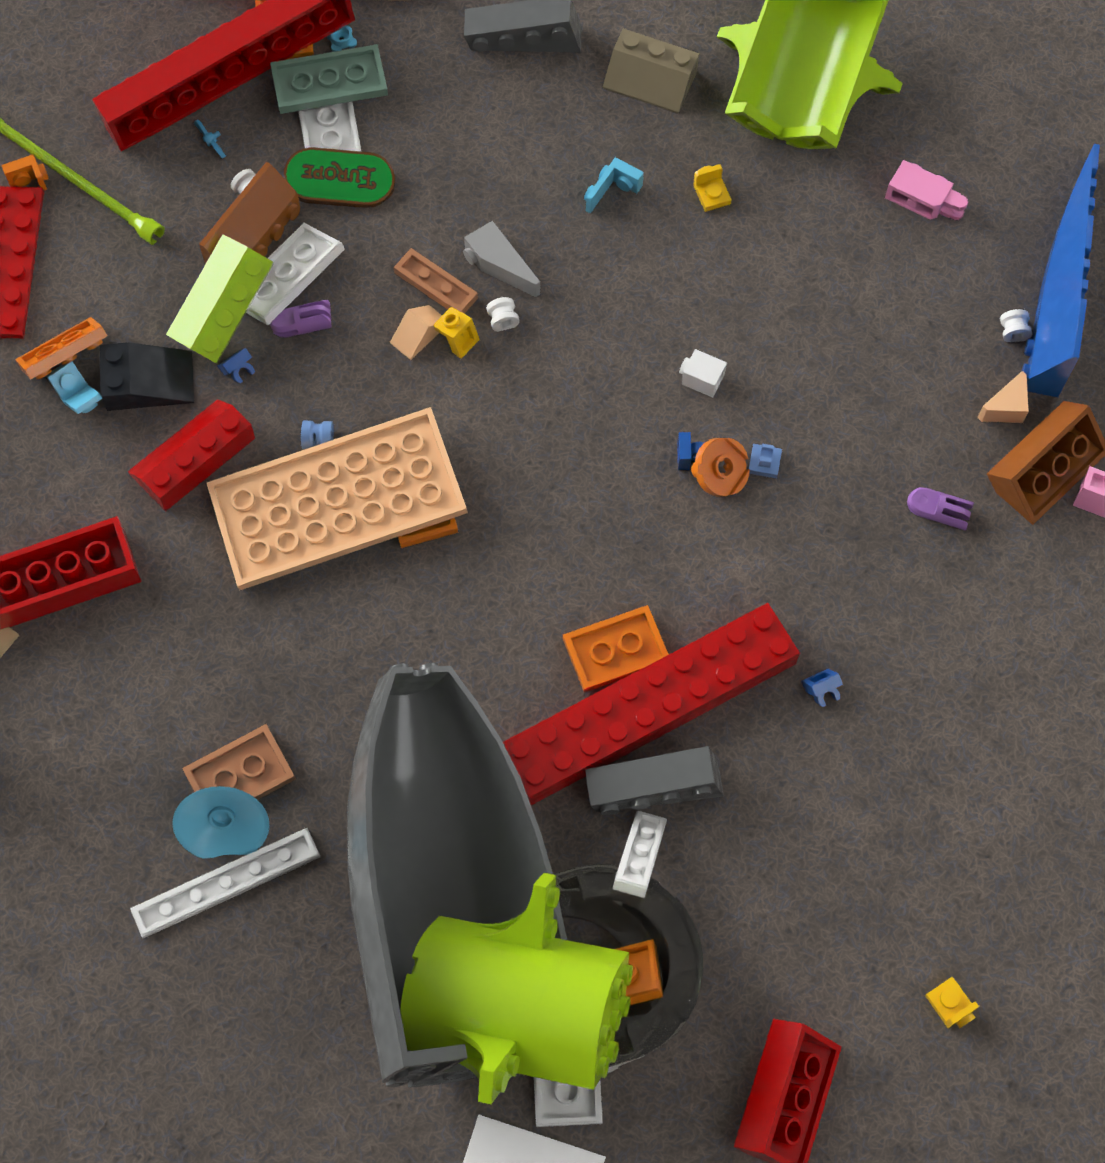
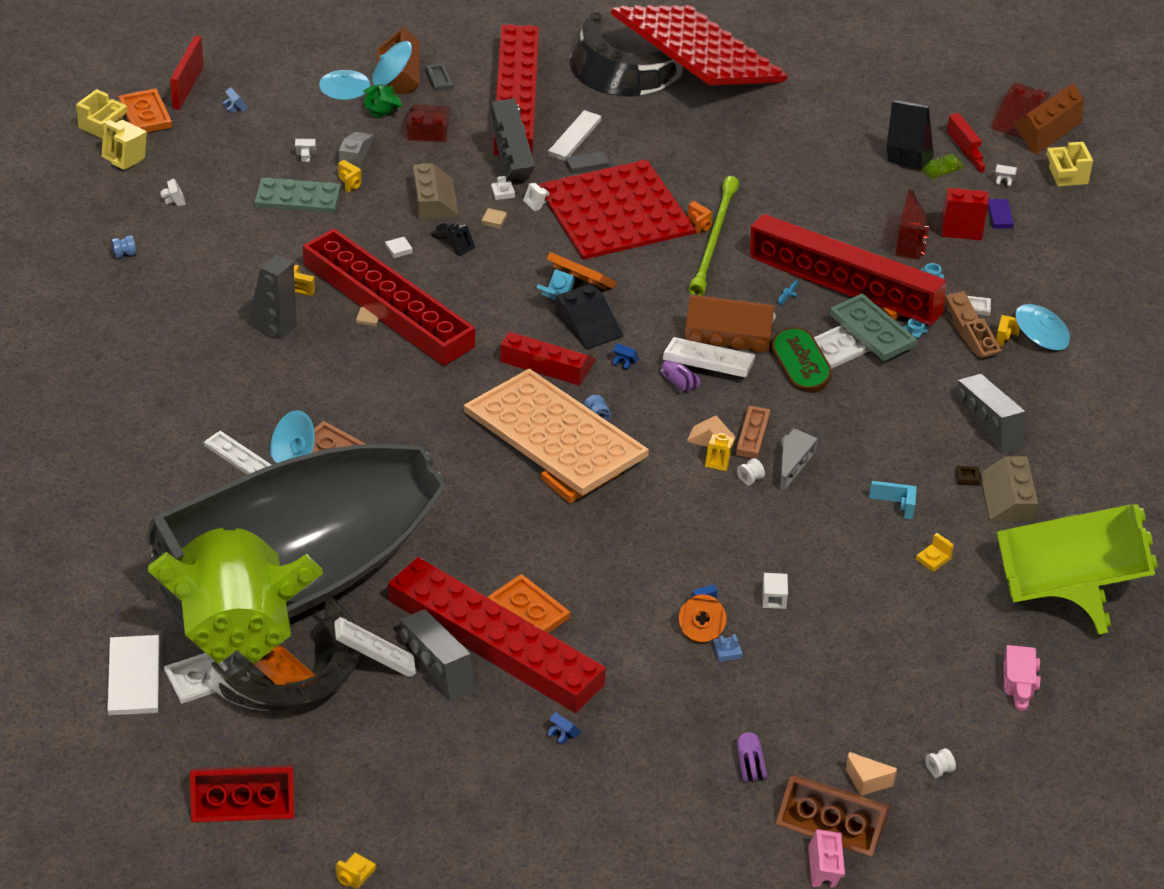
camera: 65 degrees right, 25 degrees down
(220, 298) = (661, 326): lime slope -> none
(602, 100) = (968, 475): none -> dark brown tile
(1061, 299) = (985, 778): blue wedge -> none

